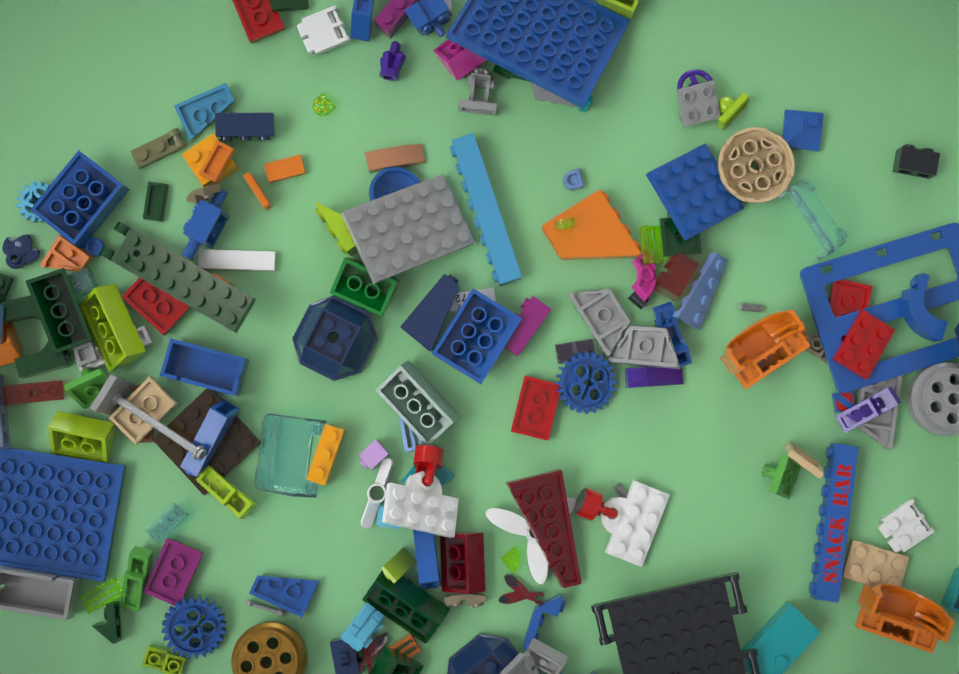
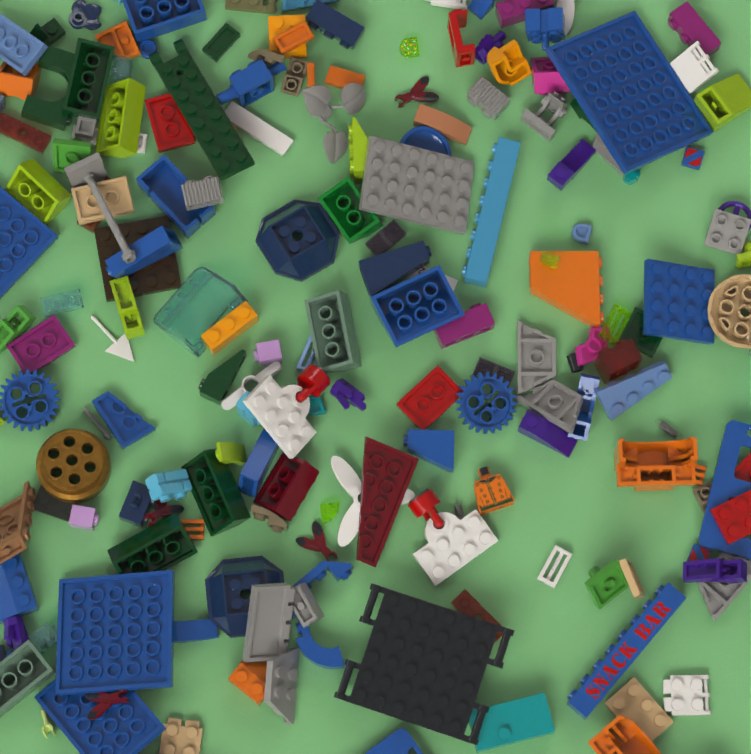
camera: 30 degrees right, 10 degrees down
(226, 354) = (202, 192): none -> light grey brick
(239, 193) = (294, 77): none -> dark tan slope
(242, 528) = (120, 347): none -> white piece
(278, 210) = (317, 101): none -> light grey plant
(347, 507) = (220, 380): none -> dark green slope
(356, 143) = (416, 93): none -> dark red piece
(373, 84) = (462, 54): none -> red window
(409, 290) = (385, 238): none -> clear purple tile
(418, 68) = (508, 64): none -> light orange brick
(419, 109) = (487, 98): none -> light grey brick
(458, 447) = (347, 395): none -> dark purple rock
(527, 125) = (571, 164): none -> dark purple slope
(564, 449) = (432, 446): none -> blue slope
(626, 54) = (692, 158): none -> blue tile
(638, 457) = (491, 492): none -> orange torso
(682, 567) = (468, 605): none -> clear red tile
(729, 489) = (547, 580): none -> white tile

